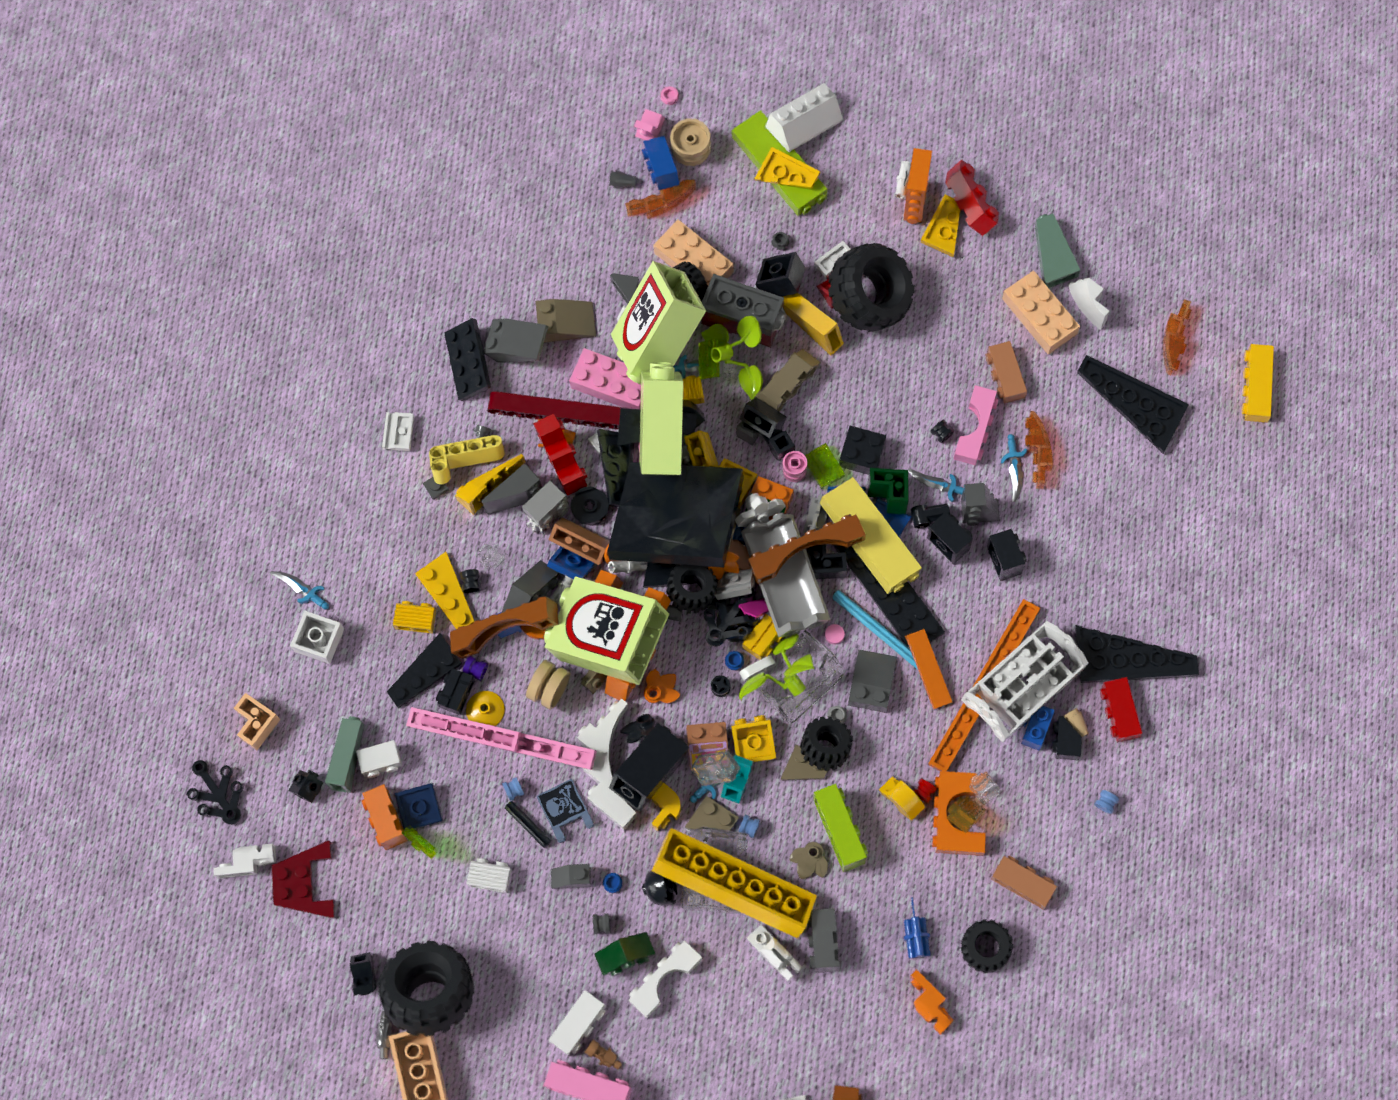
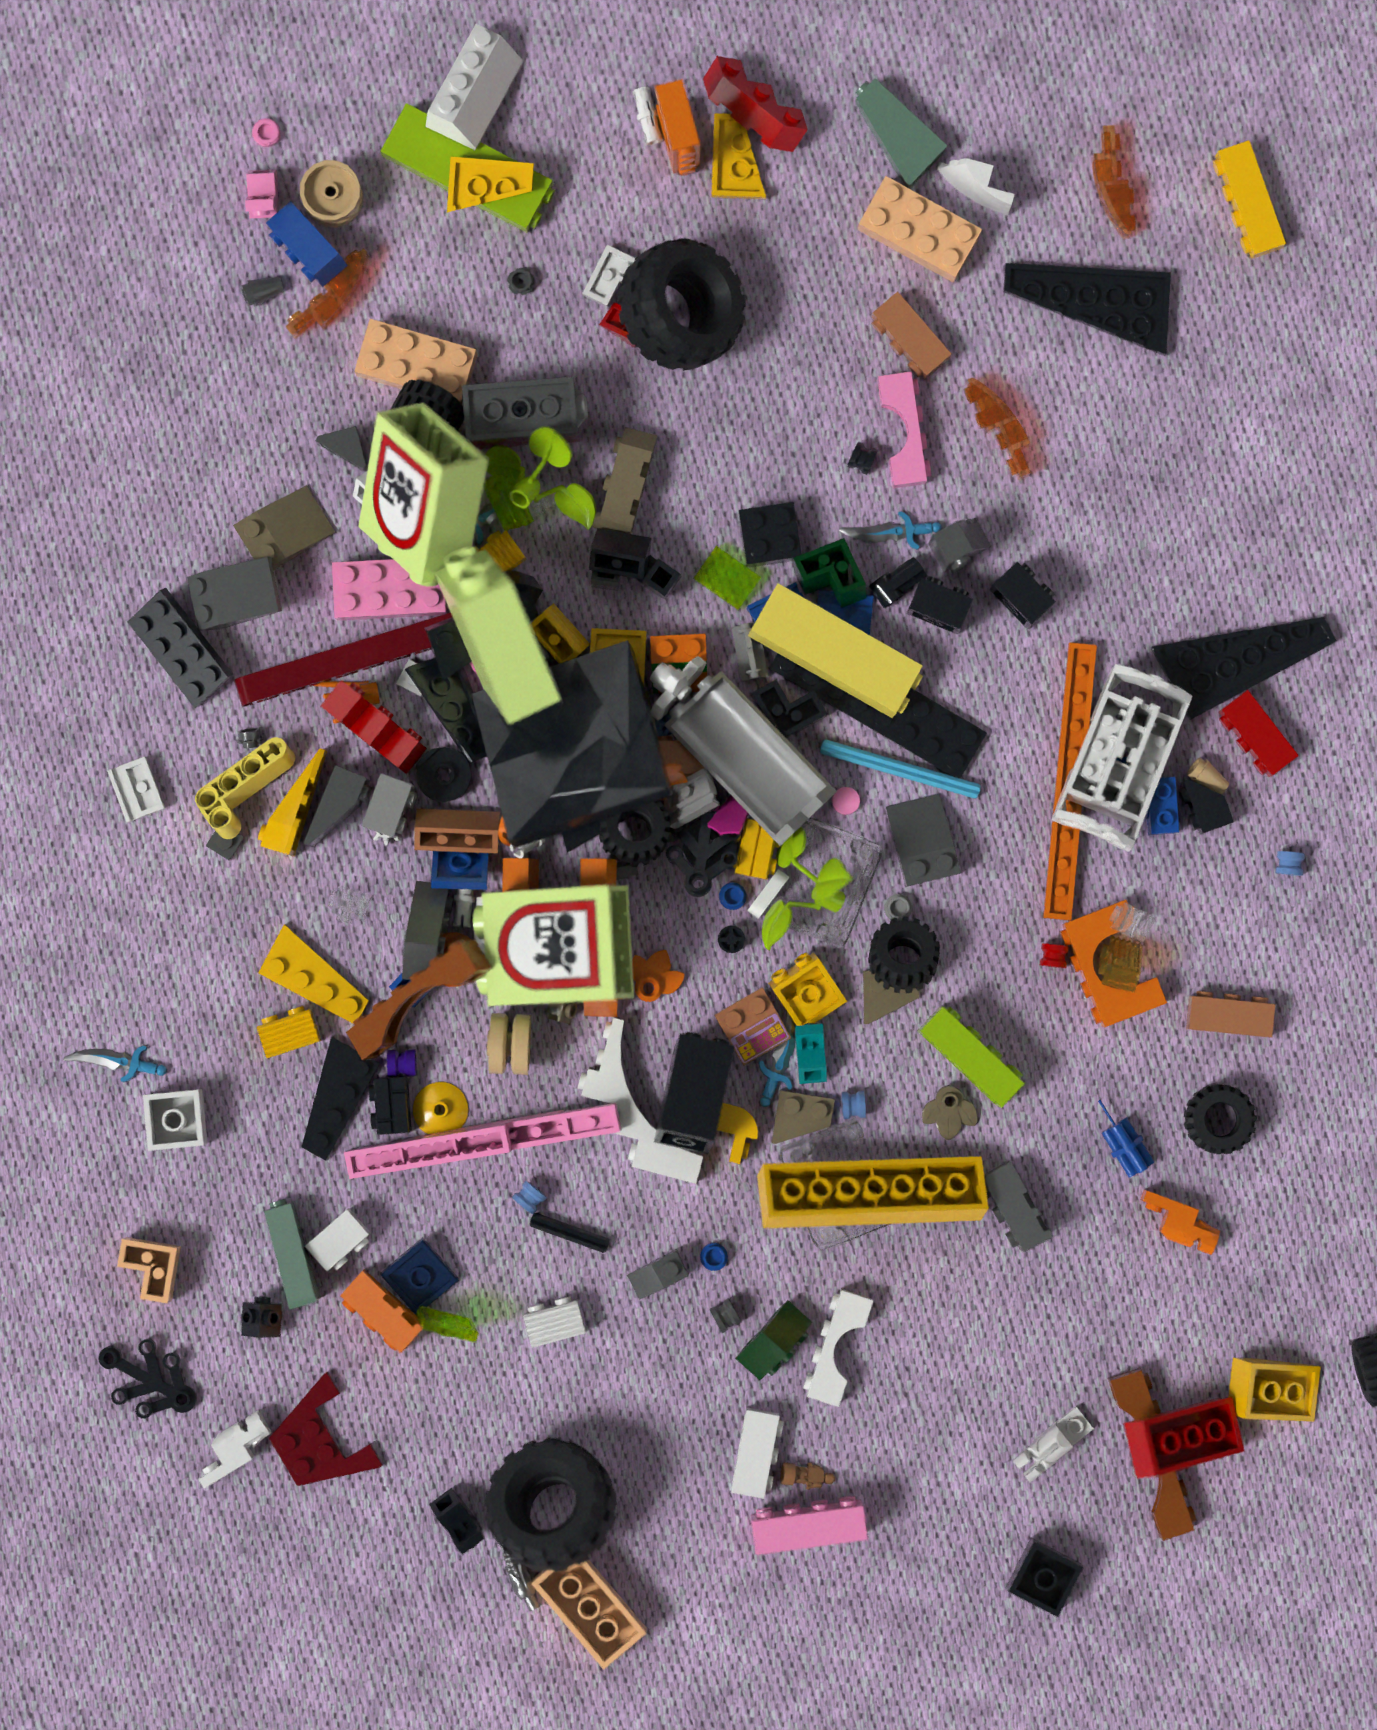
camera: 30 degrees left, 15 degrees up
(470, 581) = (337, 950): black wheel -> none
(563, 805) = (603, 1188): flag -> none
(640, 728) = (654, 1044): black plate -> none
(659, 889) = (778, 1243): black cylinder -> none
(715, 768) = (779, 1055): clear brick -> none
(773, 952) = (958, 1250): white plate -> none
(781, 274) = (548, 339): black brick -> none
(794, 466) = (690, 598): bright pink wheel -> none
(814, 322) = (618, 381): yellow slope -> none
(842, 533) = (803, 670): dark orange arch -> none
(903, 798) = (1030, 978): yellow brick -> none
(928, 669) = (989, 793): orange tile -> none
(1015, 464) = (978, 462): piece -> none

